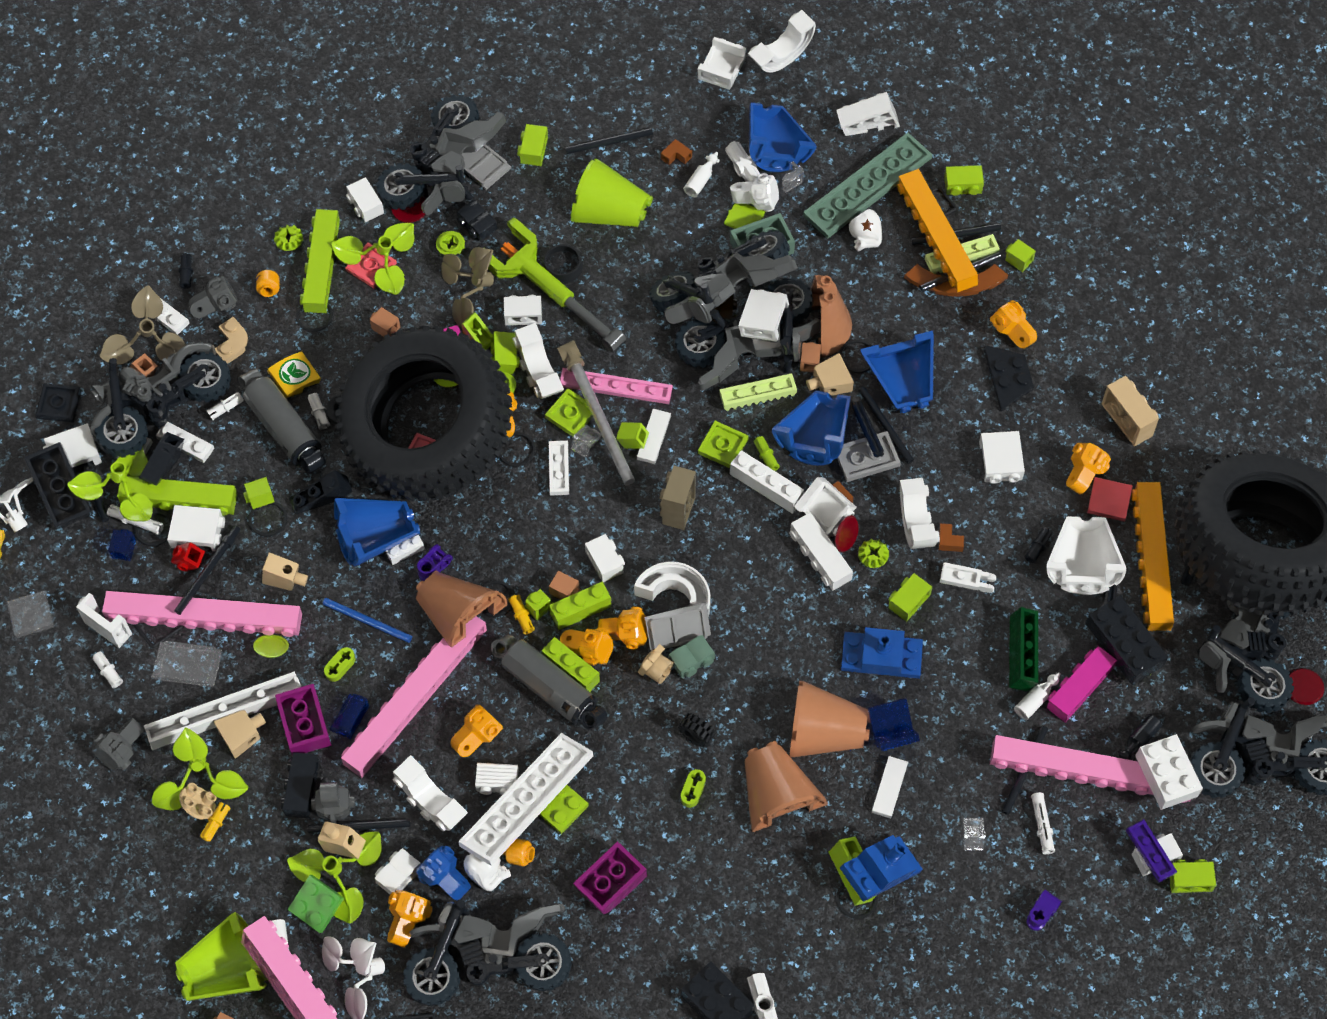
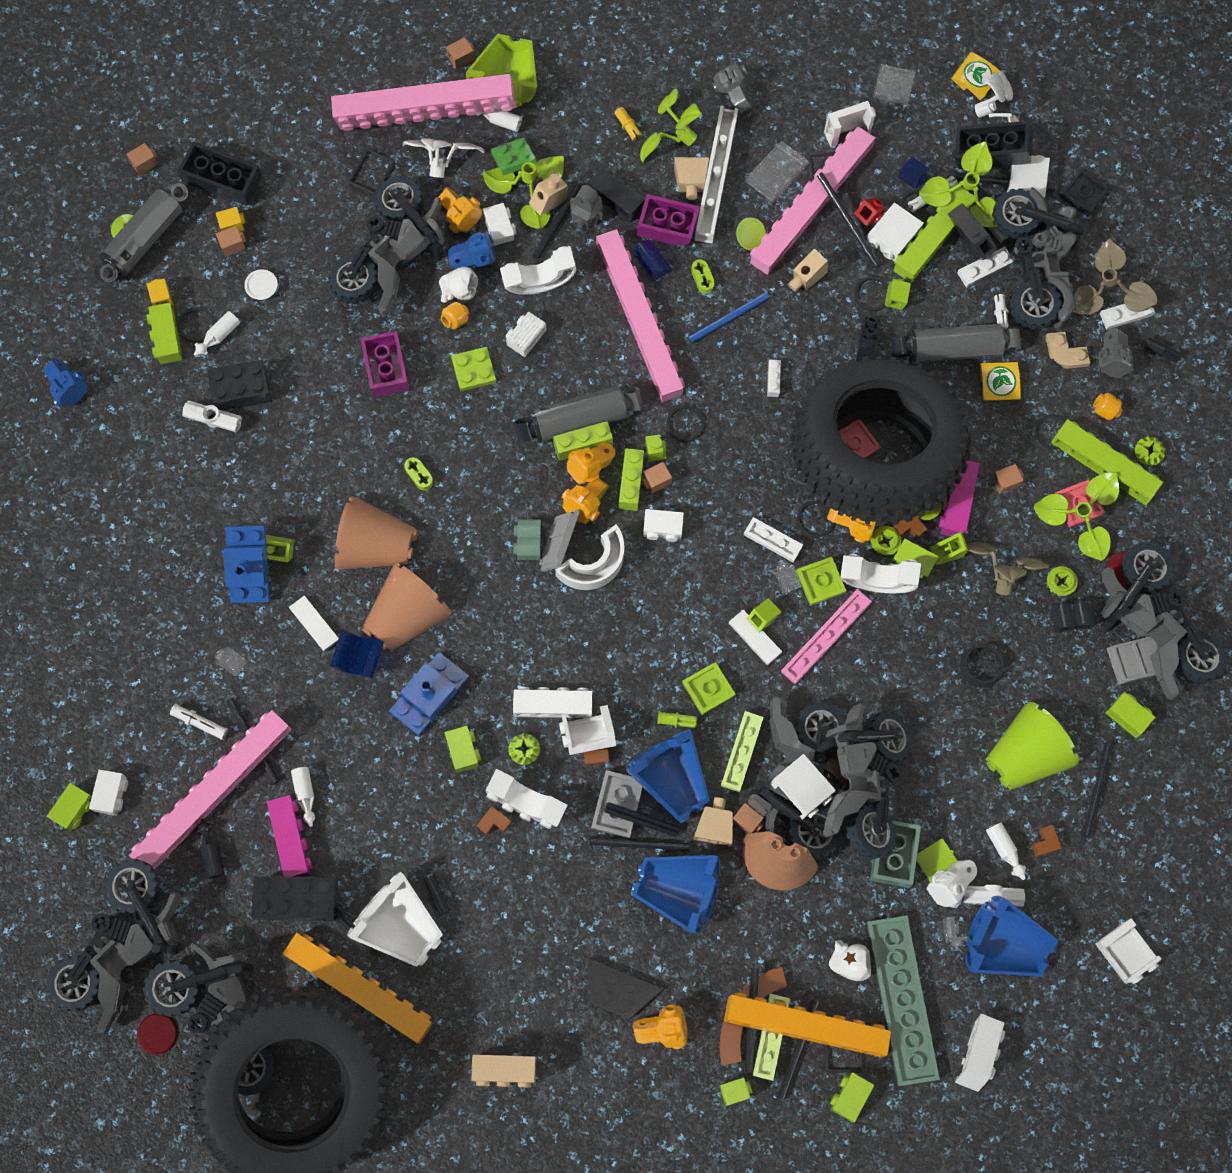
camera: 120 degrees right, 10 degrees up
(107, 670) = (807, 112): white axle -> none
(144, 365) = (1074, 263): nougat brick -> none
(197, 801) = (650, 117): tan dish -> none
(318, 411) = (953, 381): white axle -> none
(364, 199) = (1155, 531): white brick -> none
(371, 527) = (803, 357): blue cone -> none
(434, 560) = (747, 393): dark purple piece -> none
(454, 603) = (694, 384): nougat cone -> none
(477, 728) = (575, 342): light orange piece -> none
(521, 614) = (650, 431): yellow pin -> none
(522, 310) = (951, 600): white brick -> none
(525, 799) = (489, 339): white plate -> none
(526, 263) = (1000, 630): lime piece -> none
(571, 356) = (877, 609): flat silver piece -> none
(656, 665) = (538, 504): tan piece -> none
(678, 497) = (673, 607): dark tan brick -> none
(697, 730) = (460, 500): black tyre -> none
(766, 481) = (647, 700): white brick -> none
(787, 47) = (1109, 1015): white brick -> none
(846, 533) = (551, 731): dark red piece -> none
(966, 577) = (449, 809): white hinge -> none
(1002, 456) = (539, 921): white panel -> none
(1023, 649) = (349, 808): dark green brick -> none
(1044, 908) = (131, 674): dark purple piece -> none
(1087, 462) = (479, 993): light orange piece -> none
(1109, 499) = (438, 992): coral tile -> none
(1151, 851) = (109, 783): dark purple tile -> none
(1168, 772) = (156, 841): white brick -> none

